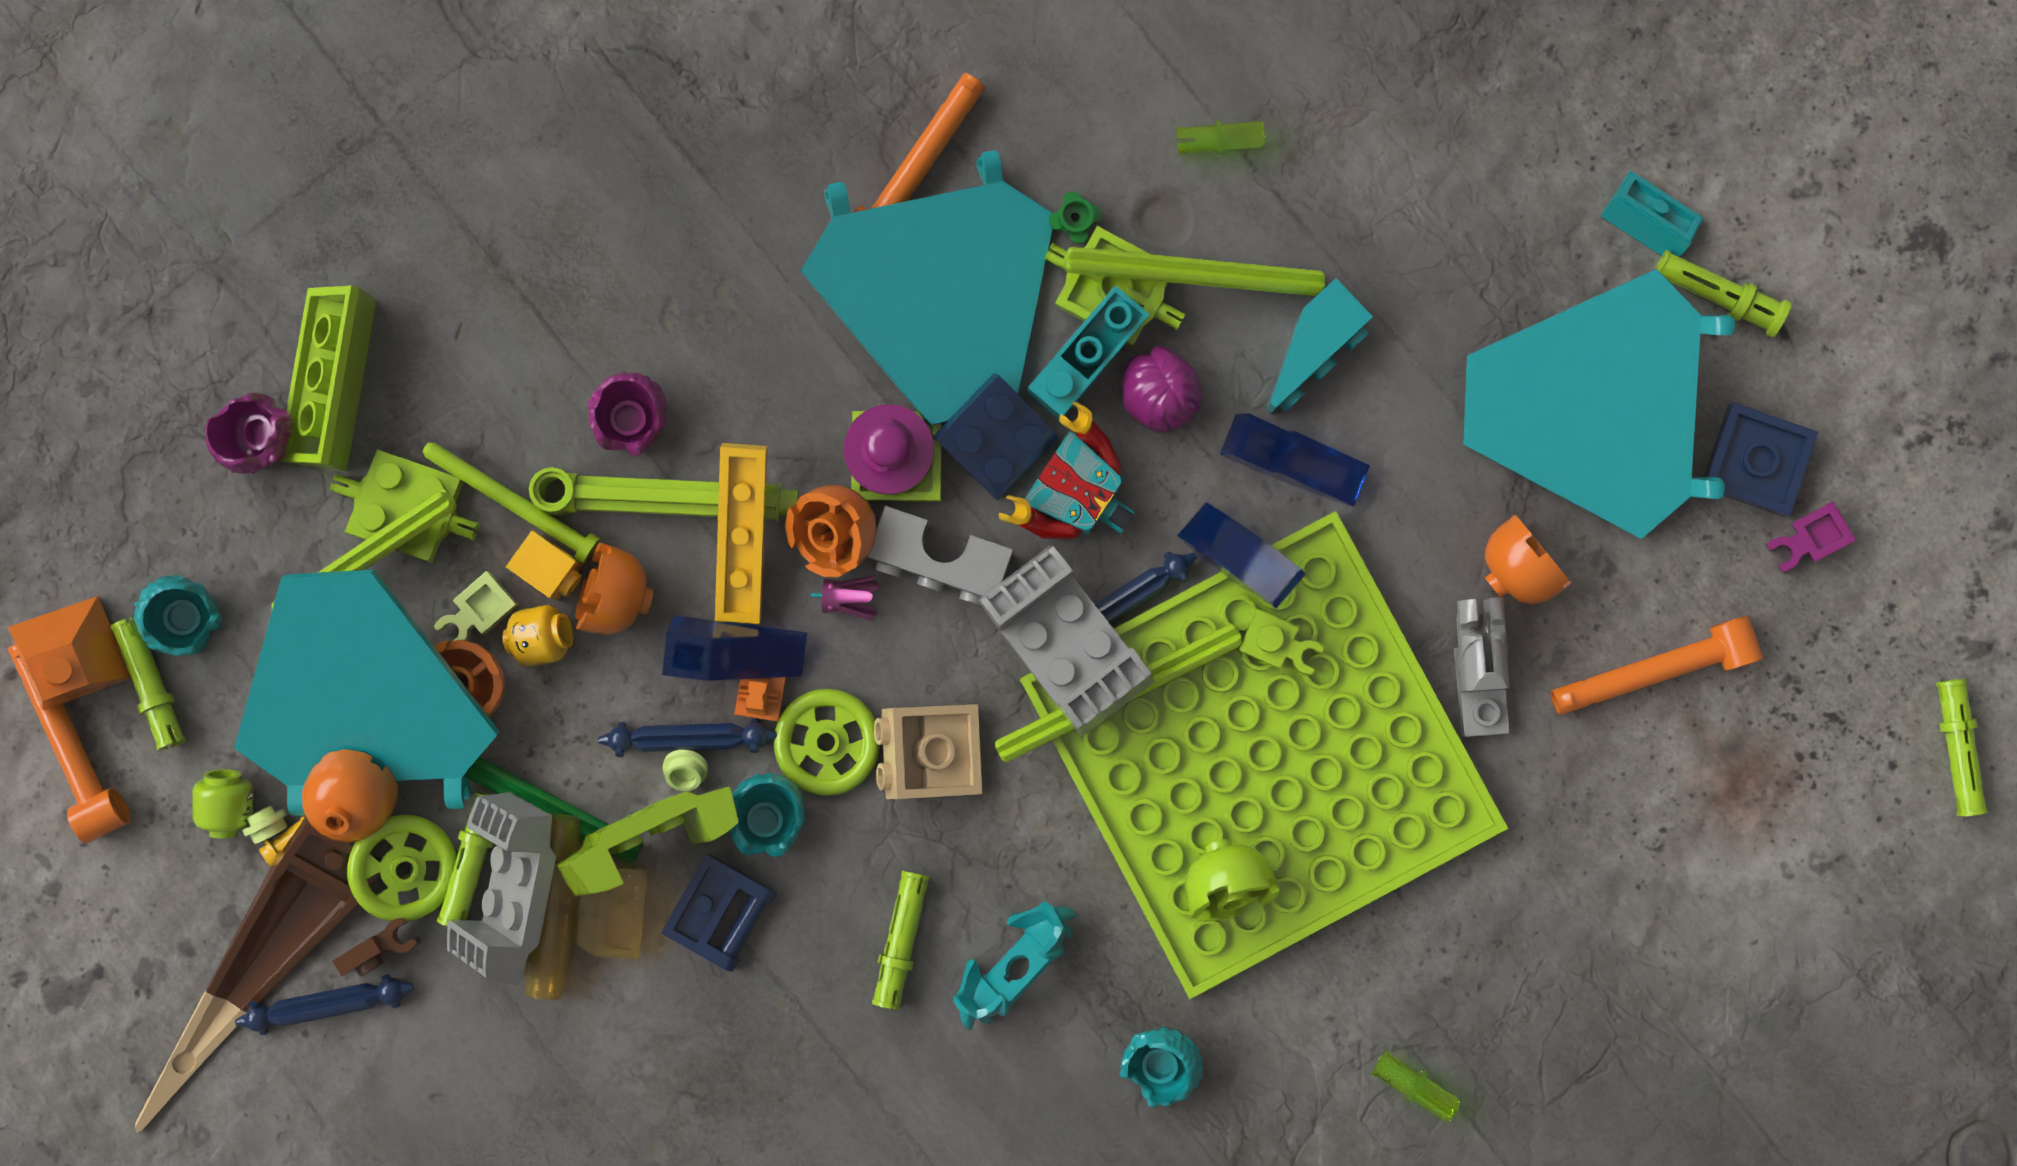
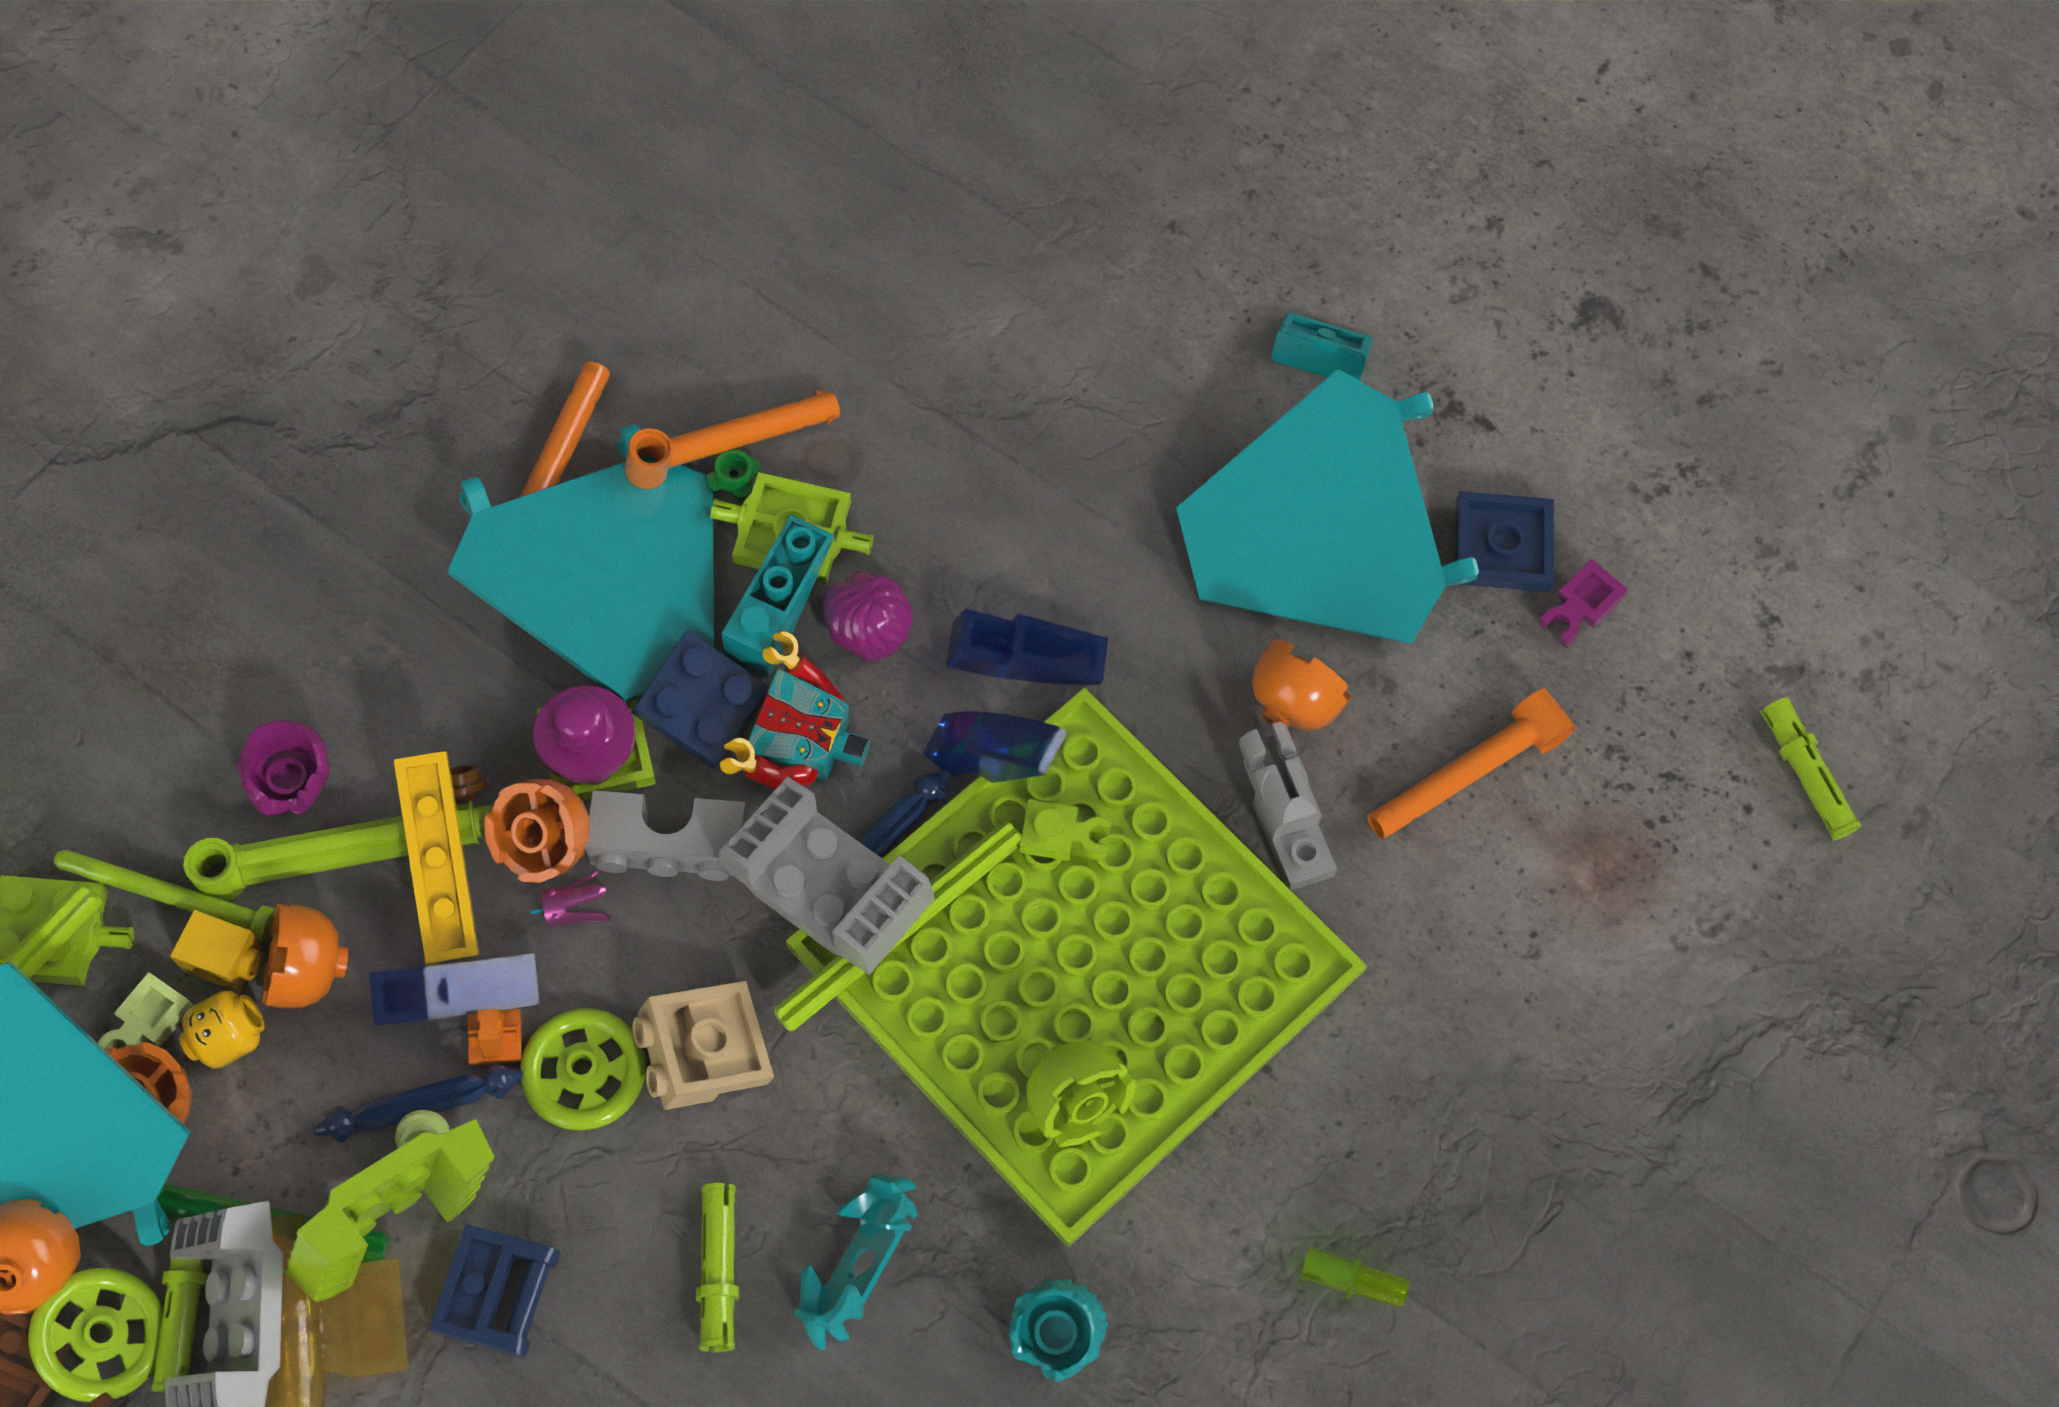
camera: 25 degrees left, 20 degrees down
(768, 815) = (529, 1160): teal hair -> none
(780, 463) = (467, 782): none -> reddish brown plate
(1080, 183) = (722, 437): none -> orange piece
(1194, 271) = (869, 490): lime axle -> none
(1221, 137) = (865, 366): clear neon green axle -> none
(1320, 332) = (1022, 518): teal slope -> none
(1745, 296) = (1448, 401): lime pin -> none

